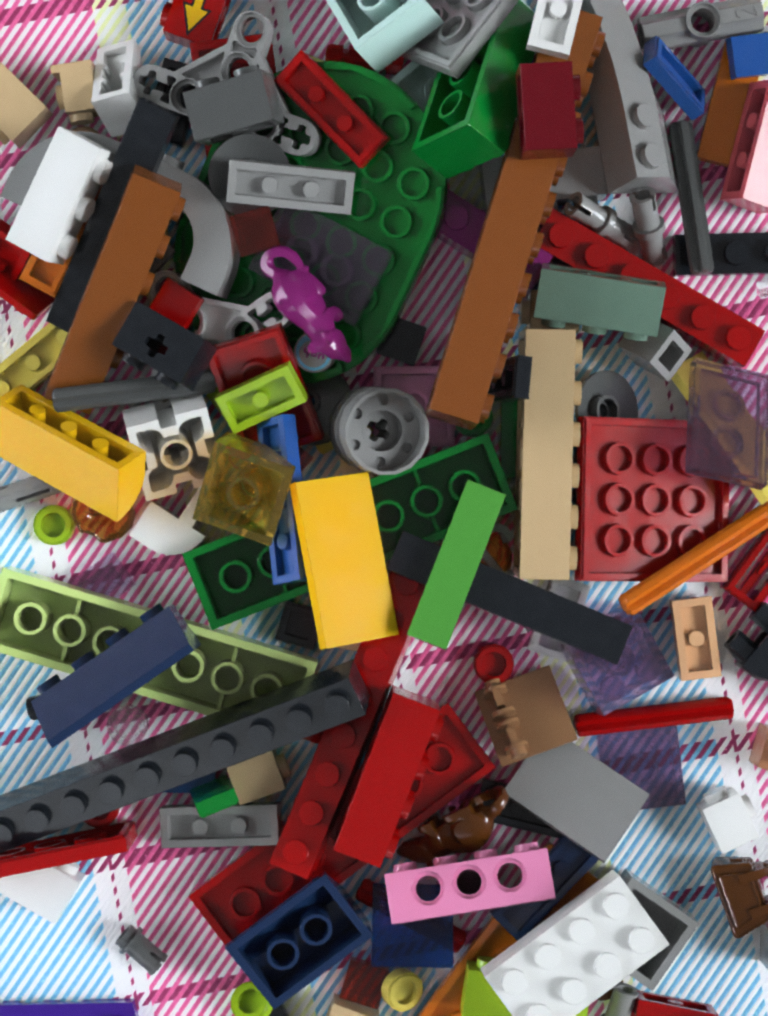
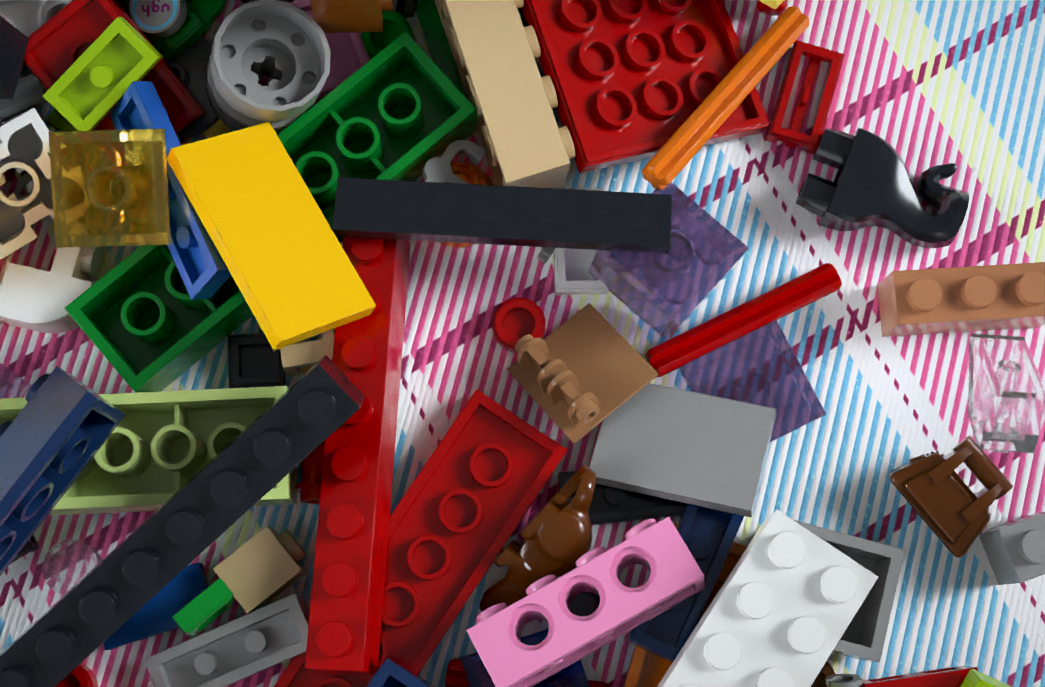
camera: 25 degrees left, 10 degrees down
(386, 777) = (423, 494): red brick -> none
(456, 564) = (418, 193): bright green tile -> none
(695, 638) = (757, 204): light nougat plate -> none
(728, 818) = (886, 411): white brick -> none

